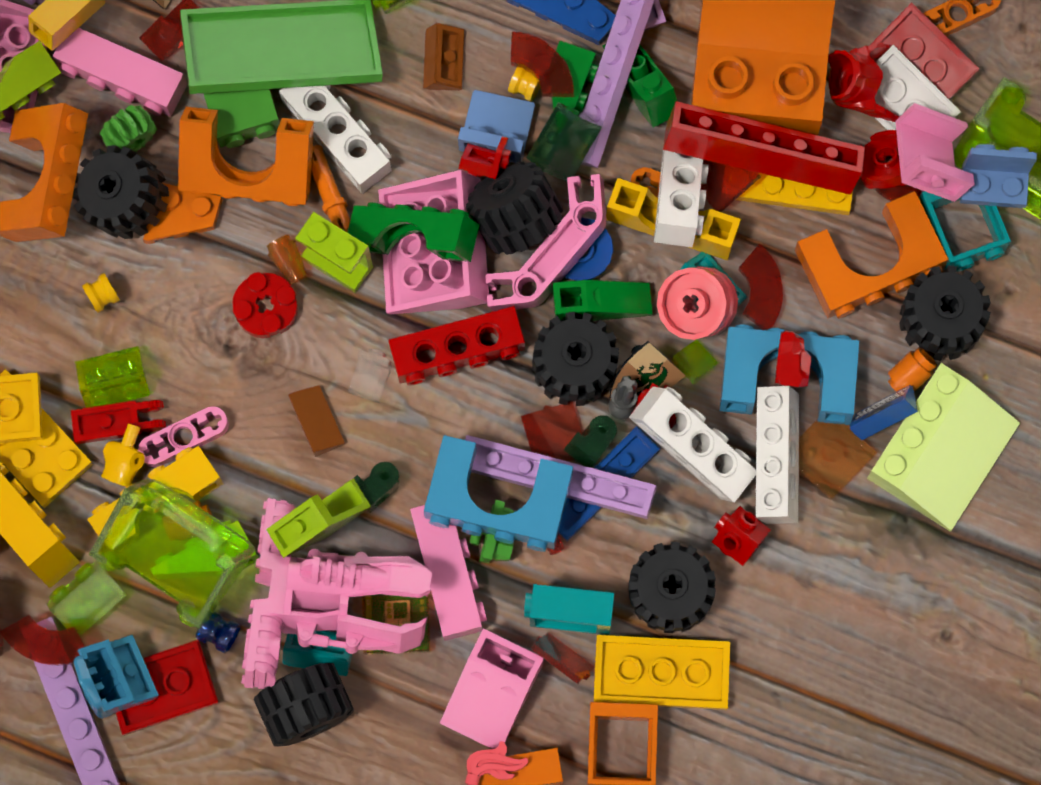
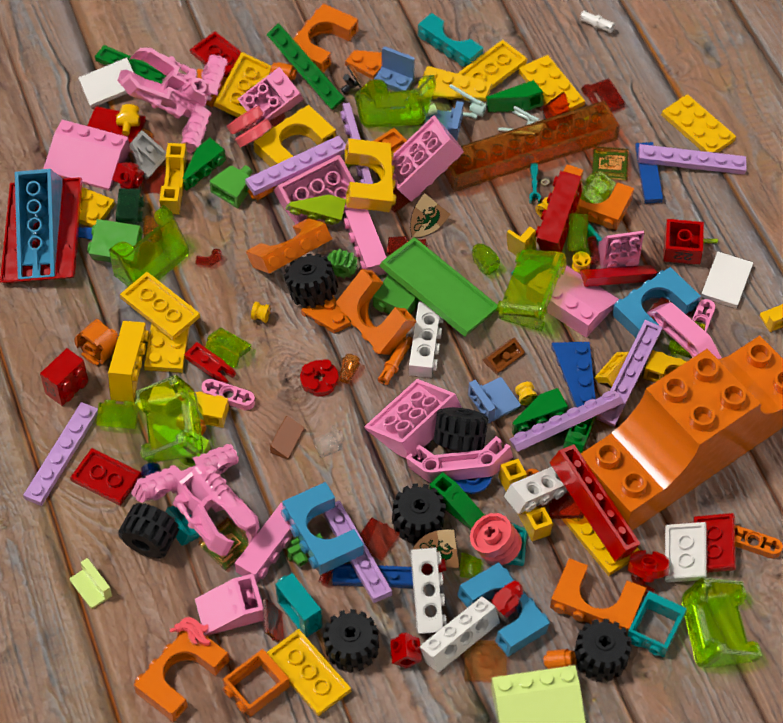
camera: 45 degrees right, 20 degrees down
(41, 644) = (81, 414): clear red tile -> none
(114, 676) = (90, 446): dark azure piece -> none
(122, 459) = (195, 376): yellow piece -> none
(318, 518) = (230, 466): lime panel -> none
(335, 252) = (367, 378): lime panel -> none
(380, 484) = (280, 485): clear green leg -> none
(446, 234) = (418, 408): green arch -> none
(469, 331) = (388, 463): red brick -> none
(483, 161) = (469, 400): red bracket -> none
(542, 62) = (540, 389): clear red tile -> none
(564, 142) = (511, 423): clear green brick -> none
(593, 442) = (388, 554): clear green leg -> none
(623, 399) = (422, 543): dark grey axle -> none
(764, 286) = (535, 568): clear red tile -> none
(856, 80) = (672, 518): red helmet -> none
(884, 413) = (525, 662): blue slope -> none
(928, 154) = (669, 575): bright pink panel -> none
(998, 176) = (688, 611): medium blue bracket -> none

